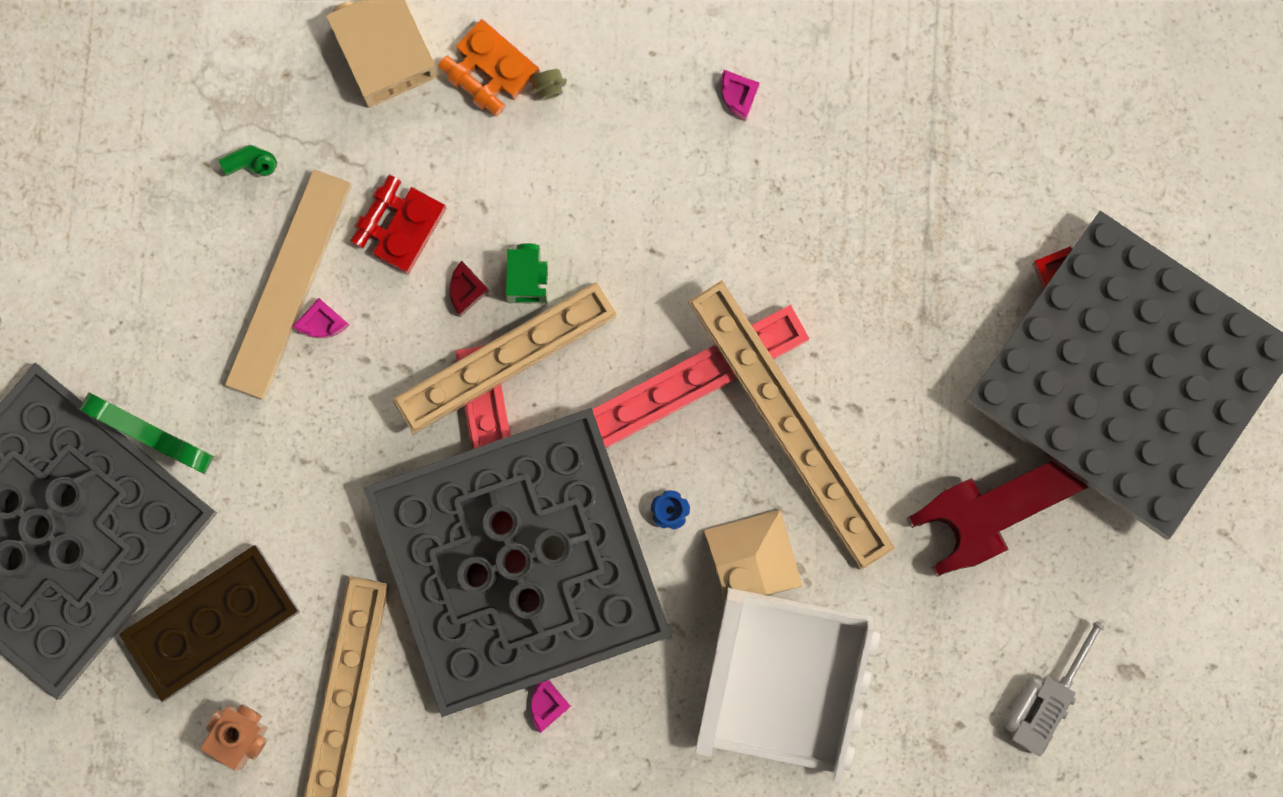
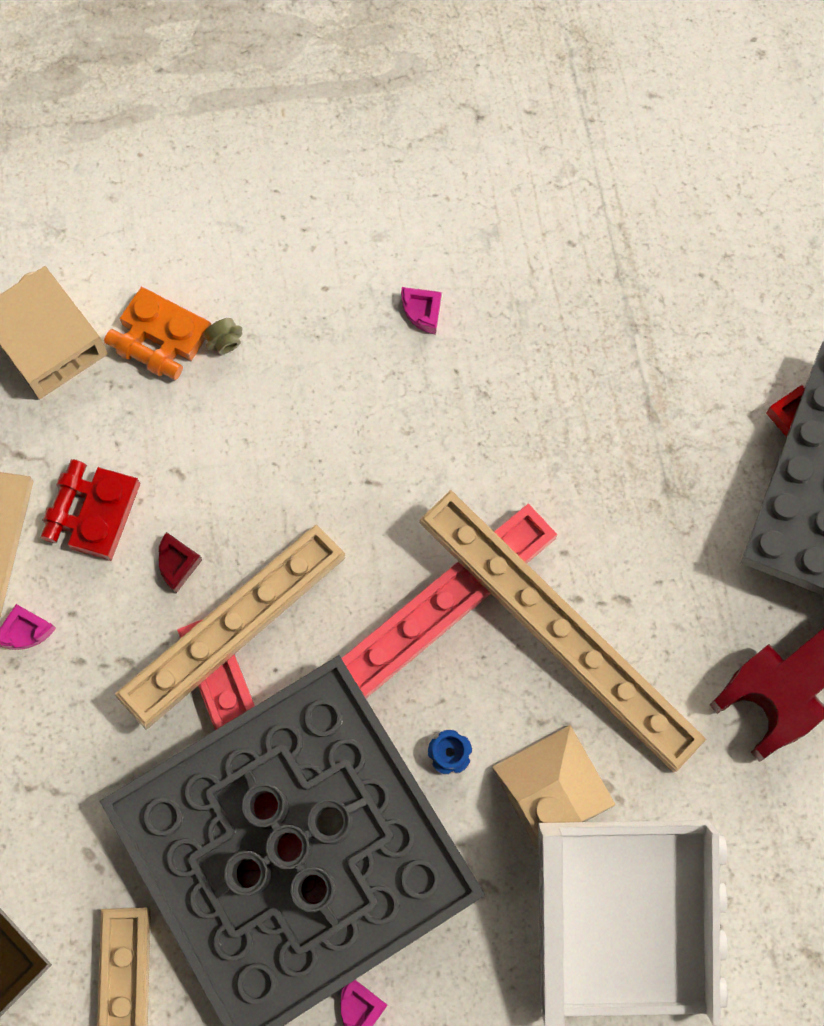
camera: 15 degrees left, 10 degrees down
(526, 275) = (238, 532): green brick -> none

